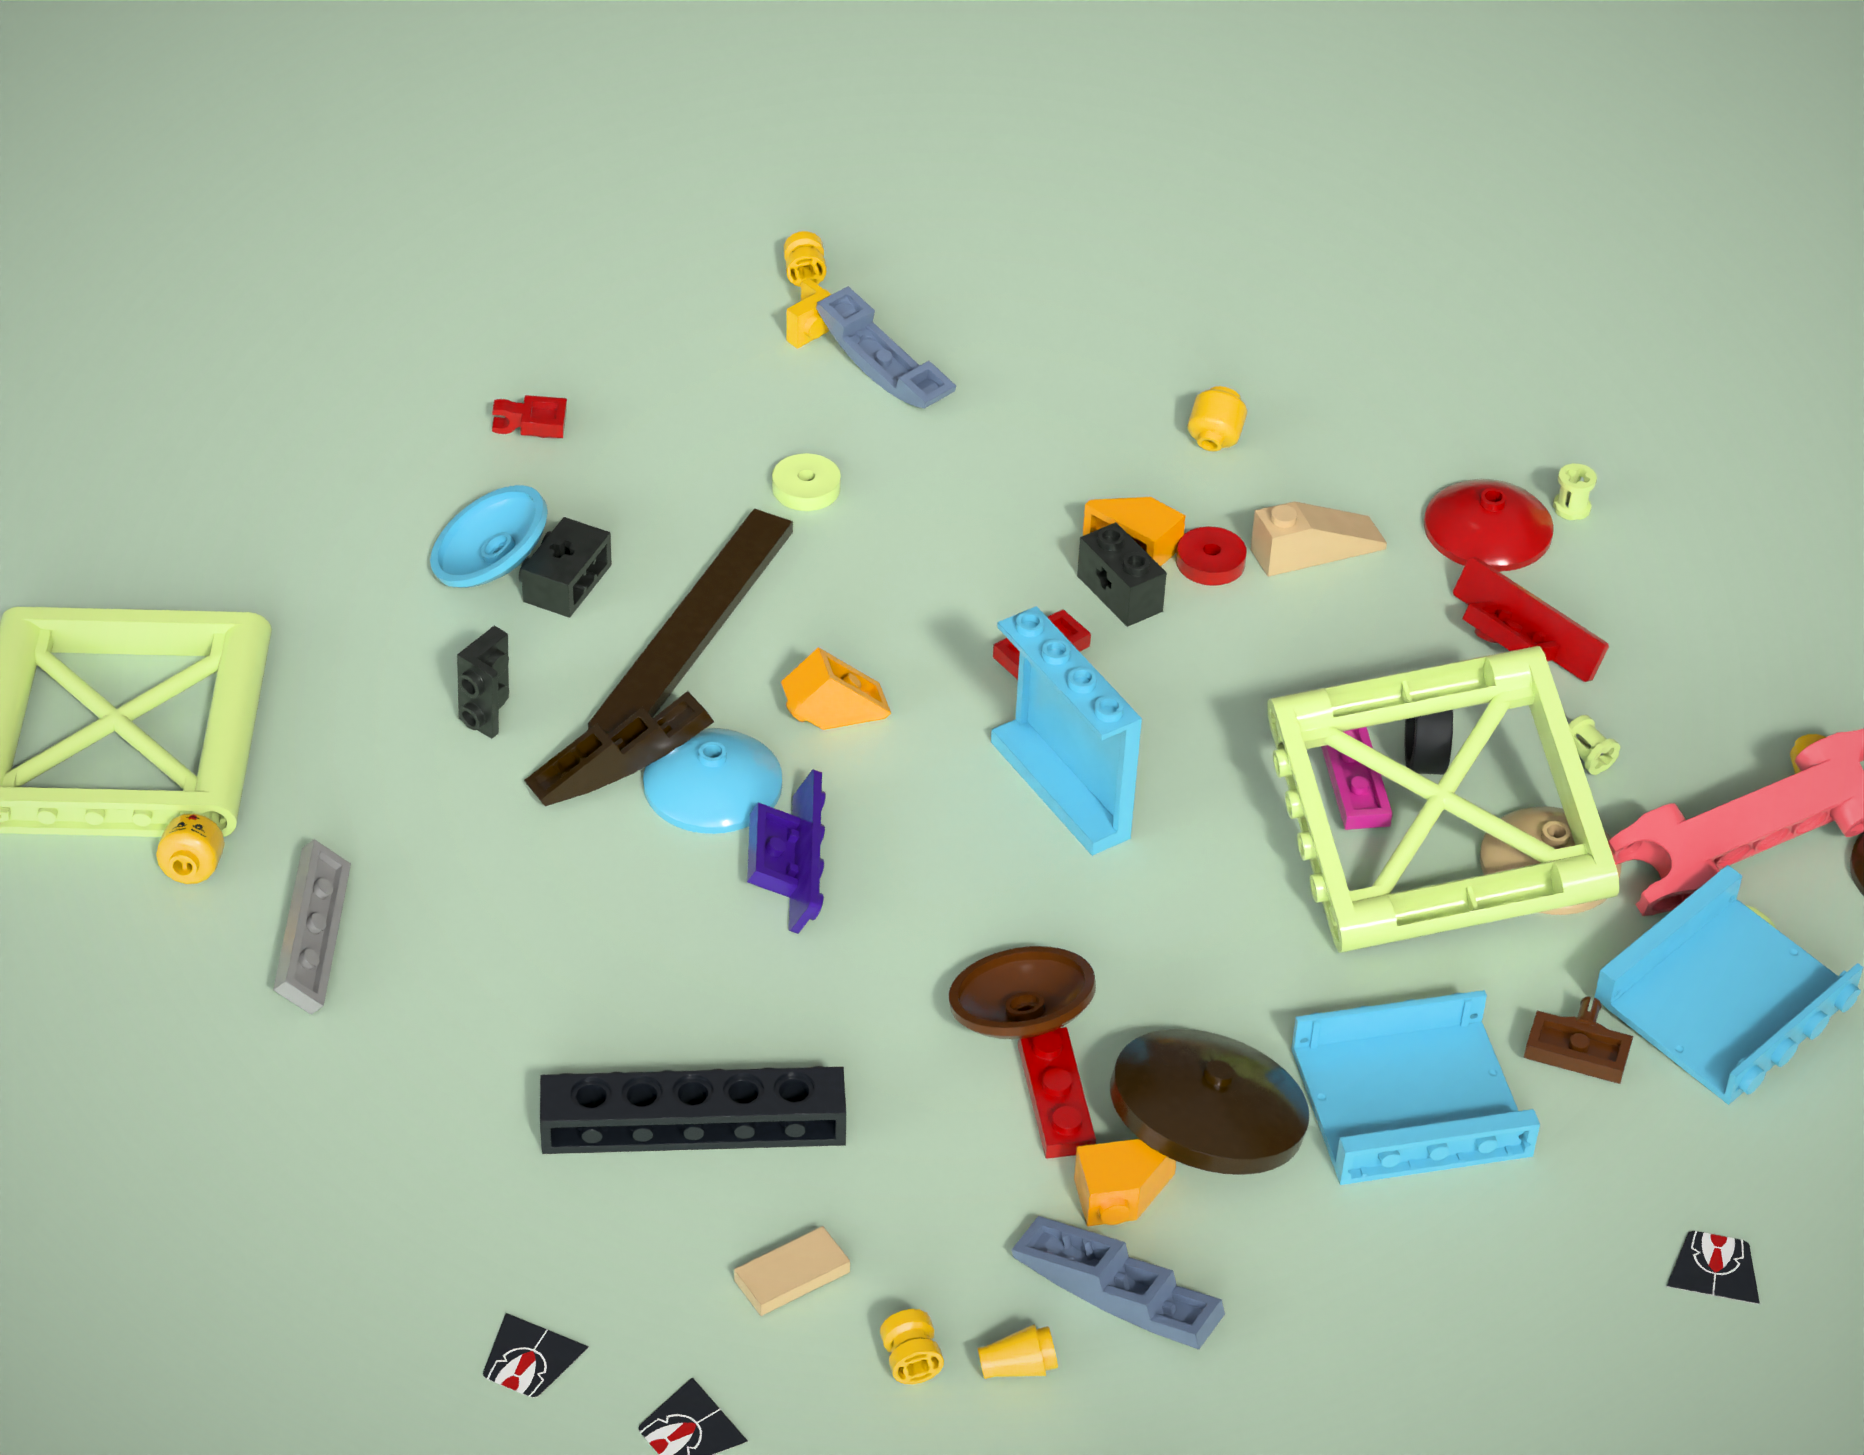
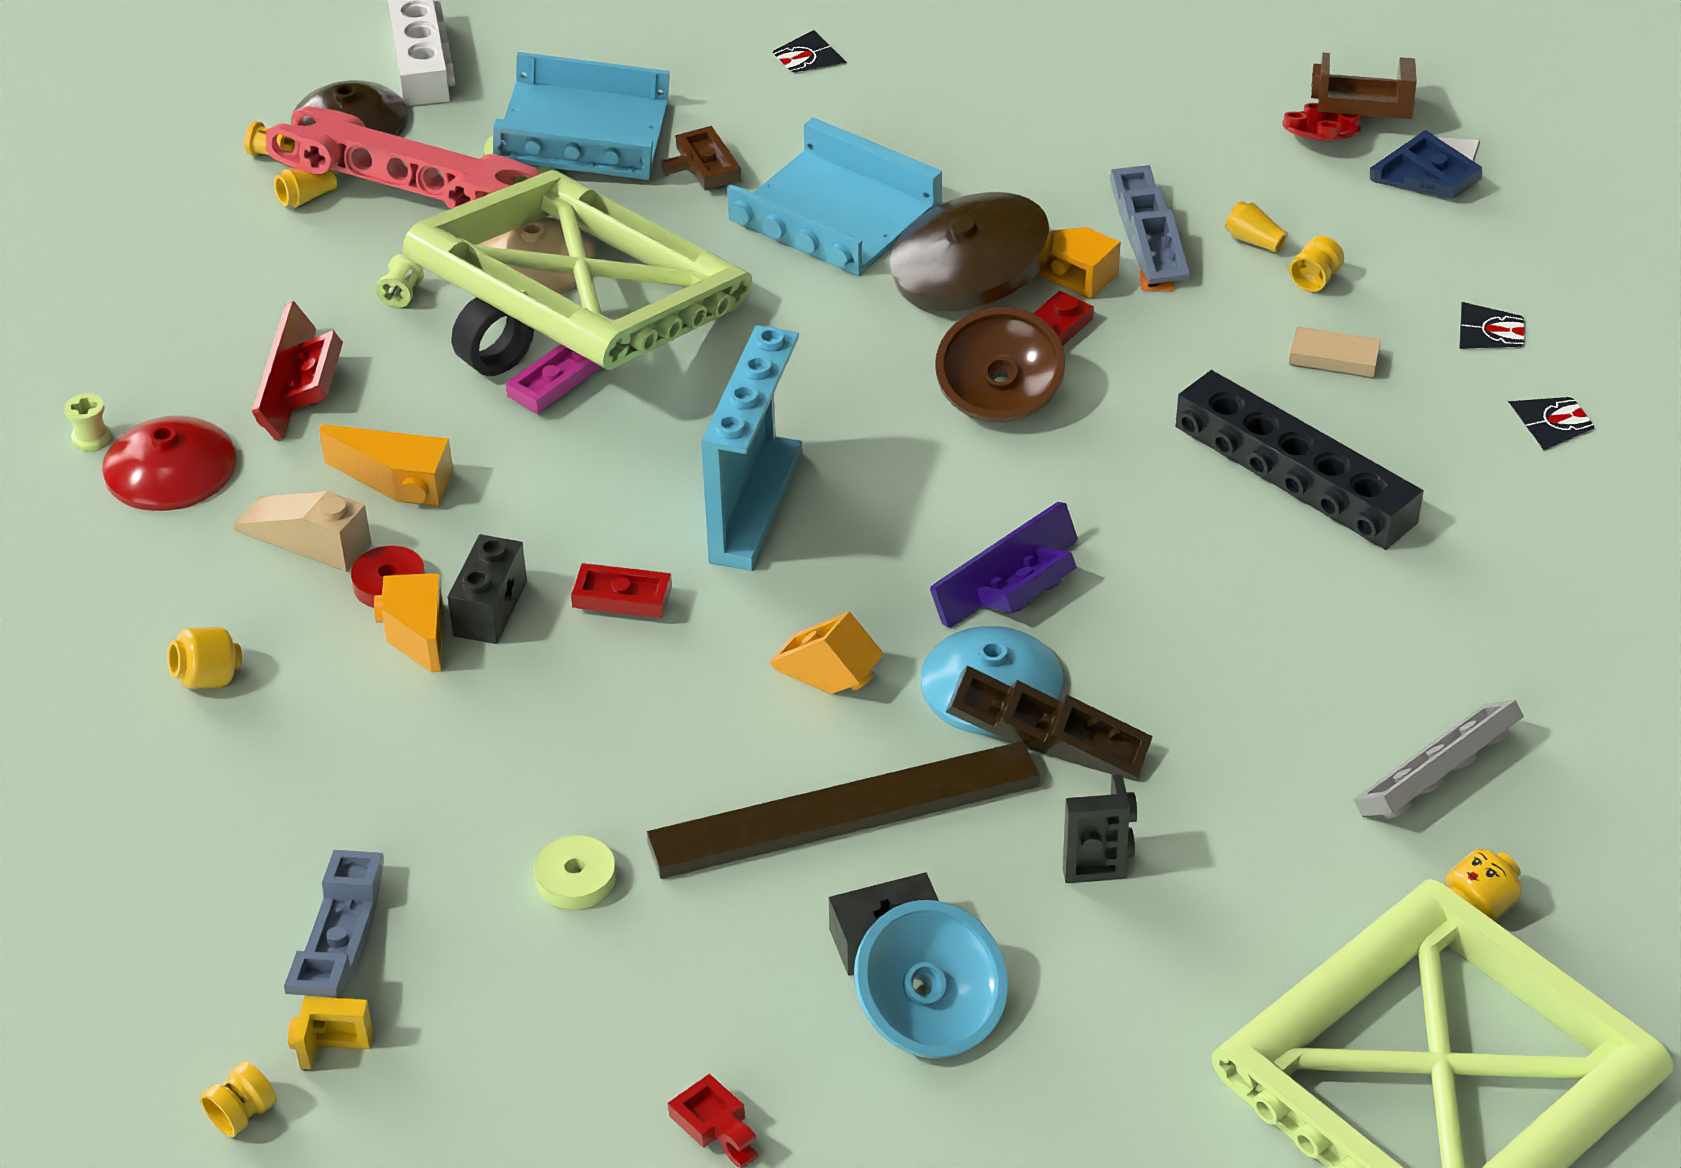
camera: 130 degrees left, 0 degrees up
(1335, 609) = (393, 463): none -> light orange slope

